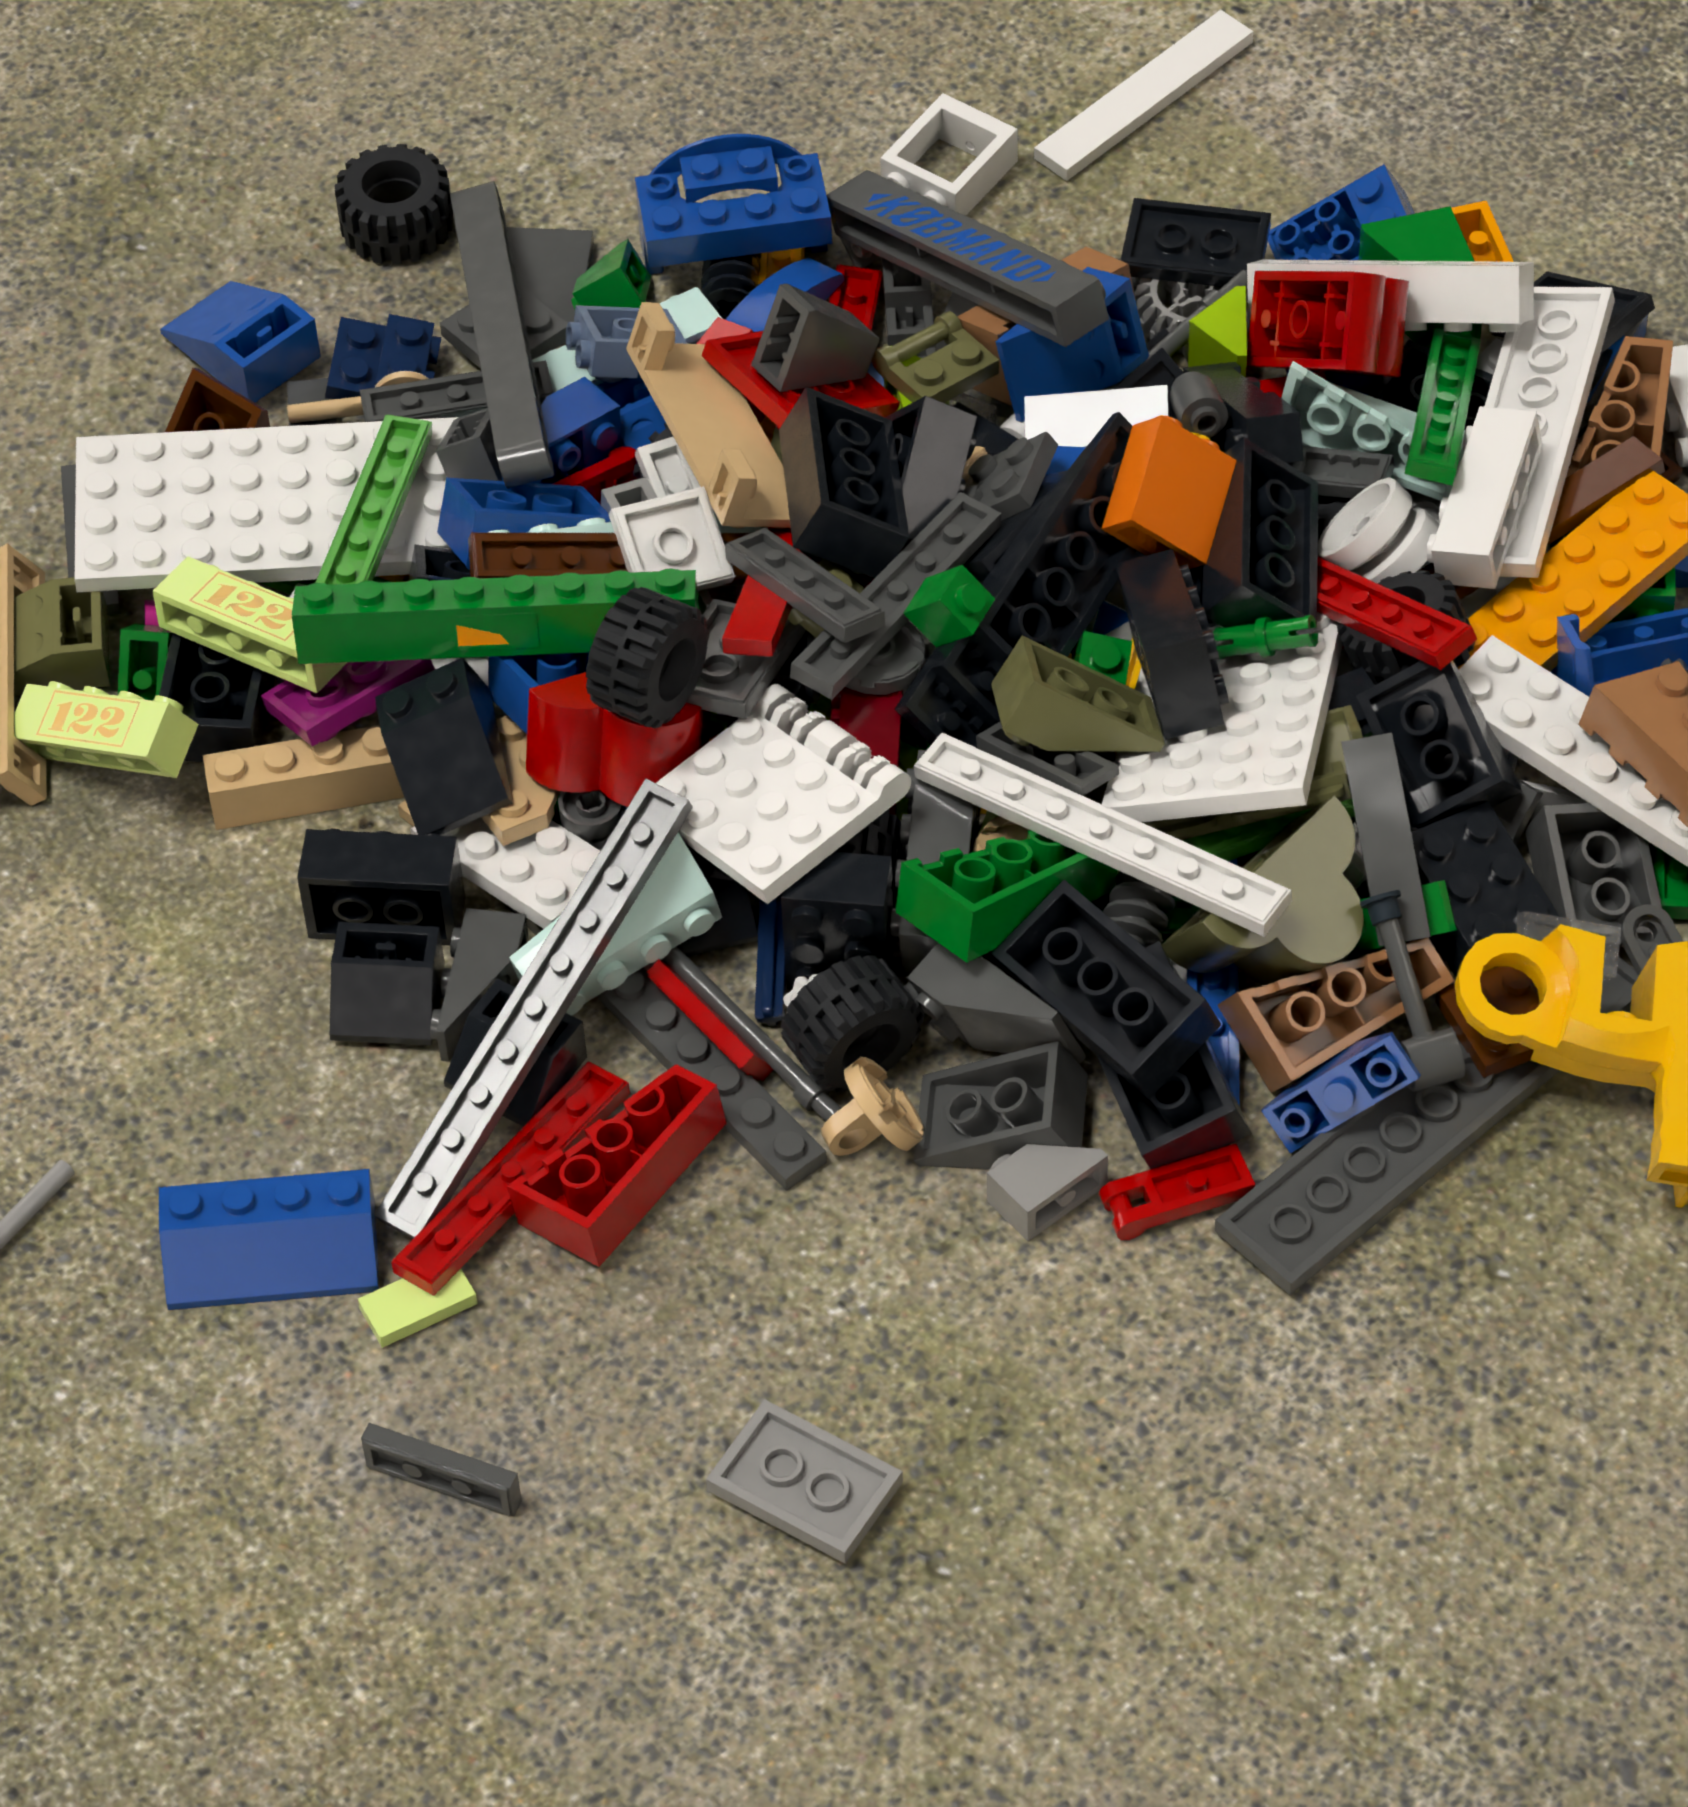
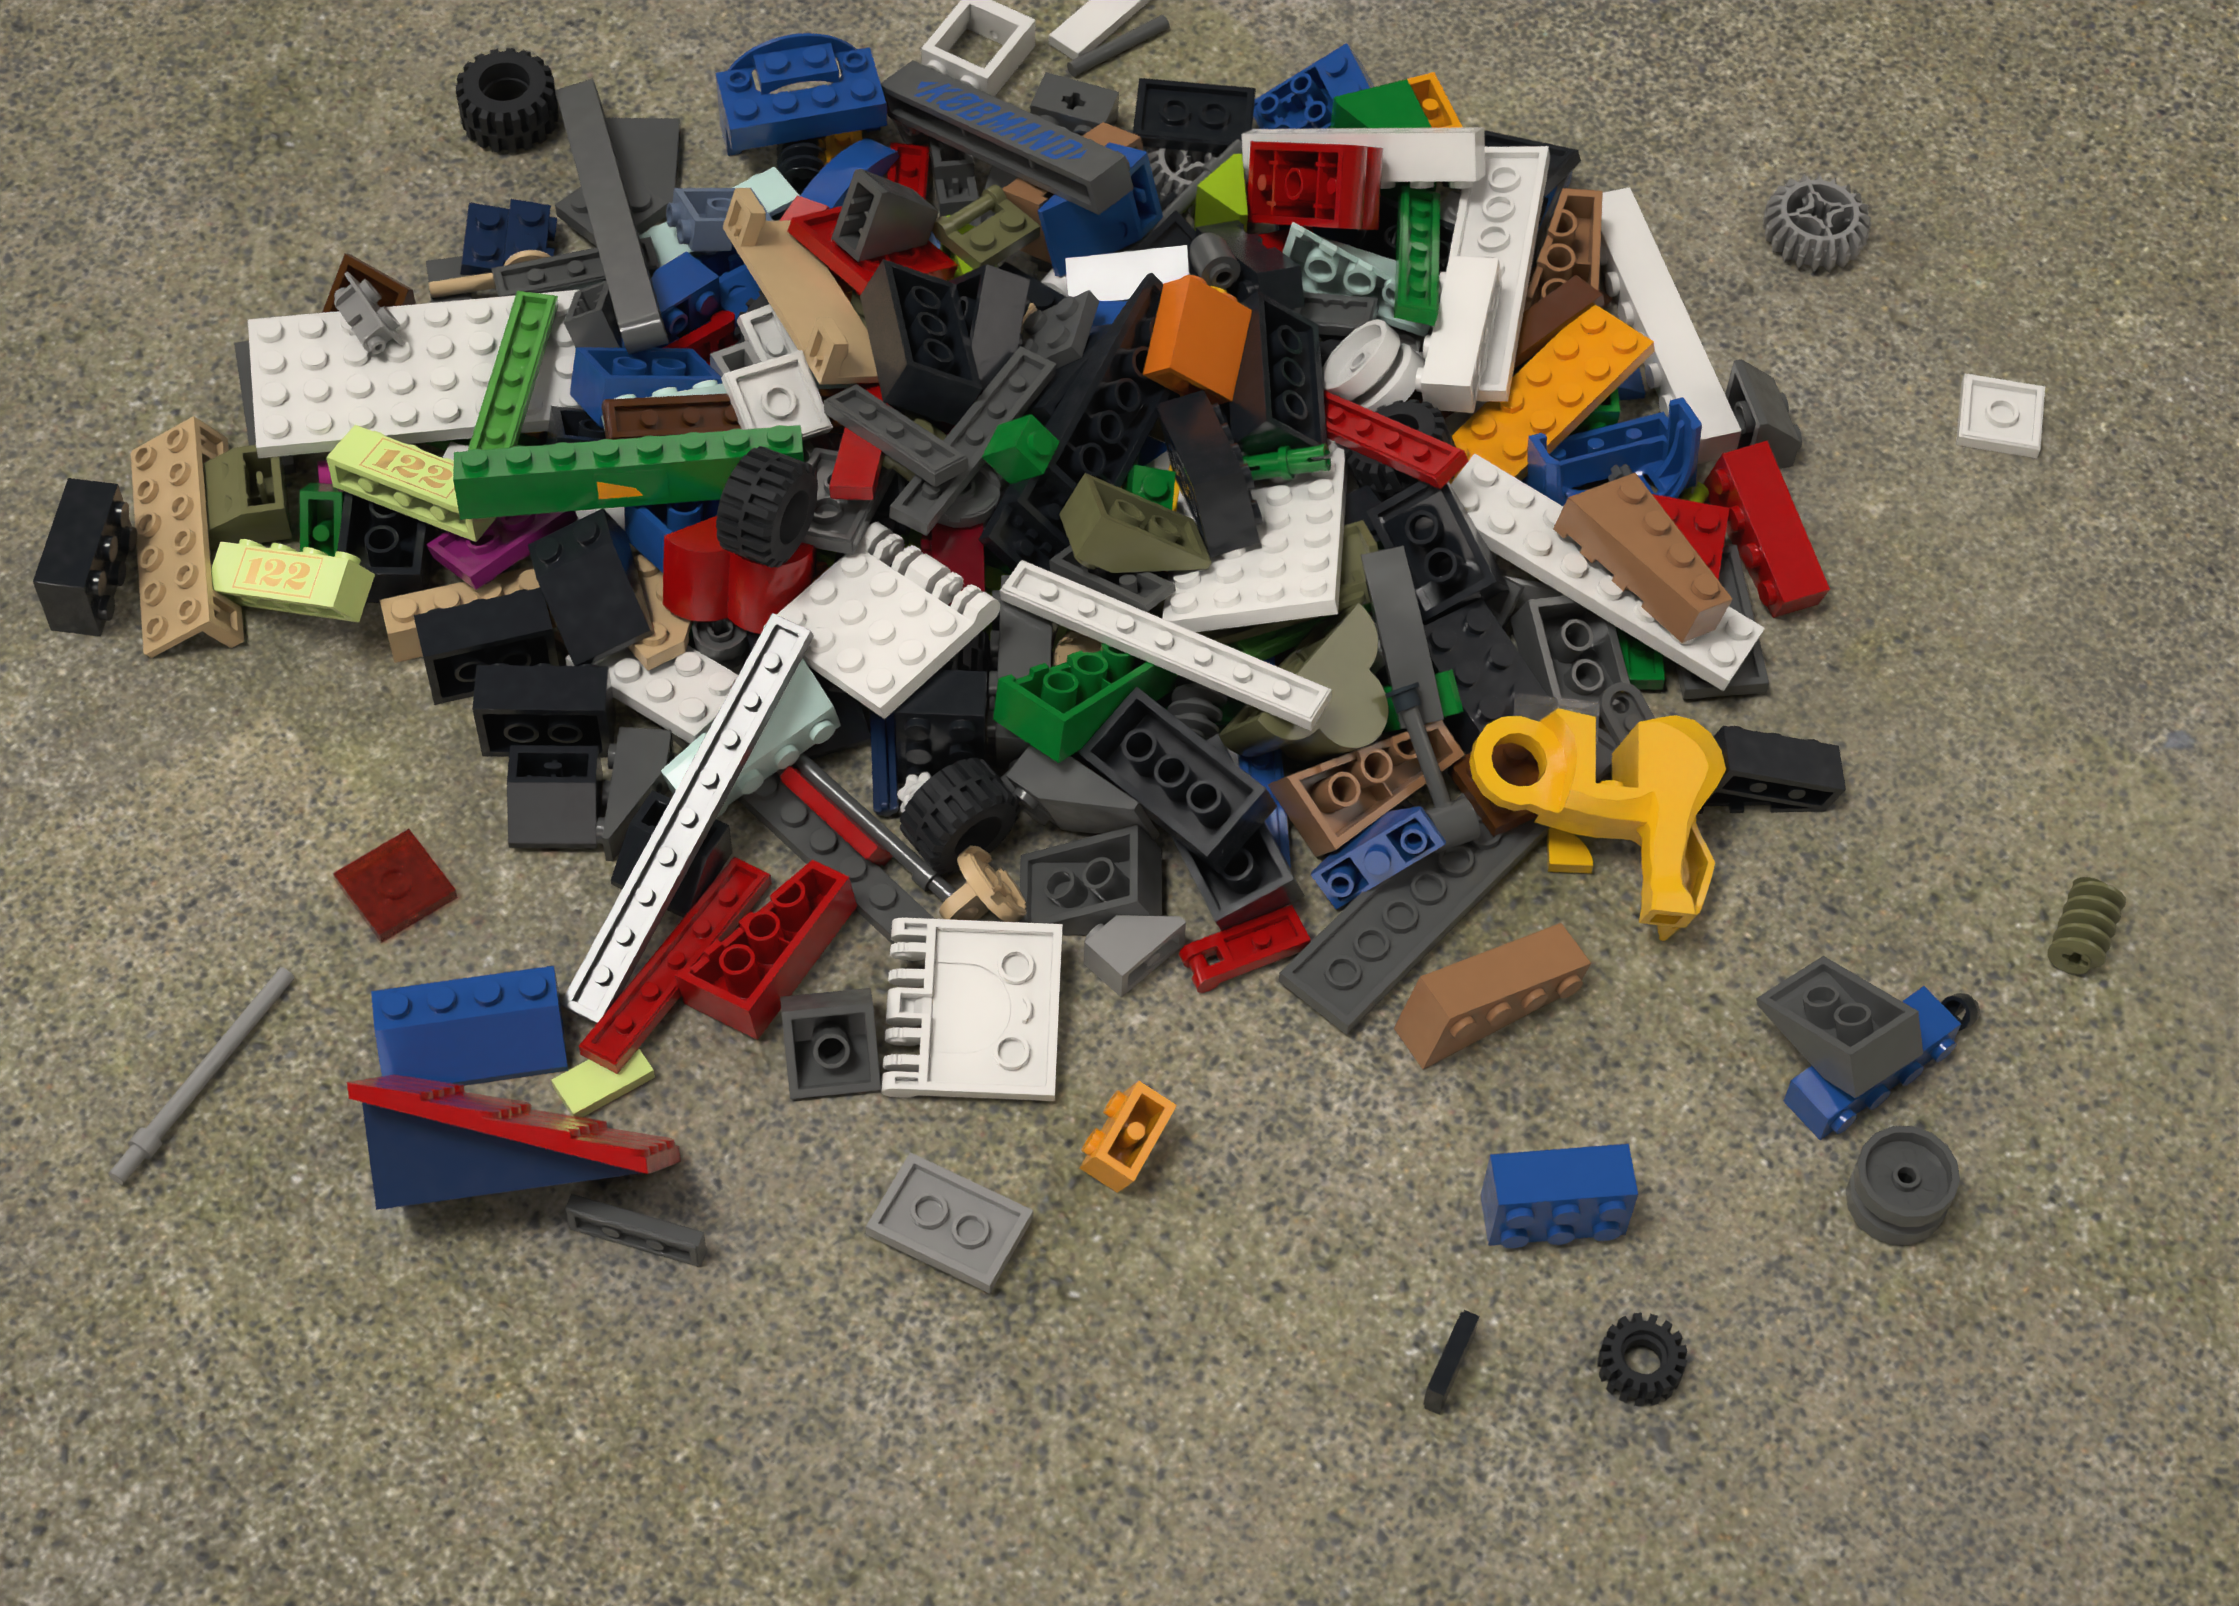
camera: 10 degrees left, 5 degrees up
(197, 1076) = (395, 885): none -> clear red tile
(222, 445) = (378, 323): none -> light grey hinge
(228, 1361) = (449, 1144): none -> piece
(247, 338) = (388, 223): blue slope -> none
(316, 793) = (483, 632): none -> black brick
(614, 280) = (702, 164): green slope -> none
(682, 1274) = (830, 1043): none -> dark grey slope
(861, 1247) = (982, 1009): none -> white hinge
(1019, 1393) = (1127, 1136): none -> light orange brick
(1057, 225) = (1074, 104): none -> dark grey brick
(1115, 162) = (1118, 45): none -> dark grey bar
(1380, 1668) = (1450, 1361): none -> black tile
(1461, 1253) = (1489, 992): none -> medium nougat wedge
(1523, 1484) = (1558, 1195): none -> blue brick
(1572, 1101) = (1567, 853): none -> yellow tile
(1615, 1651) = (1636, 1384): none -> black tyre

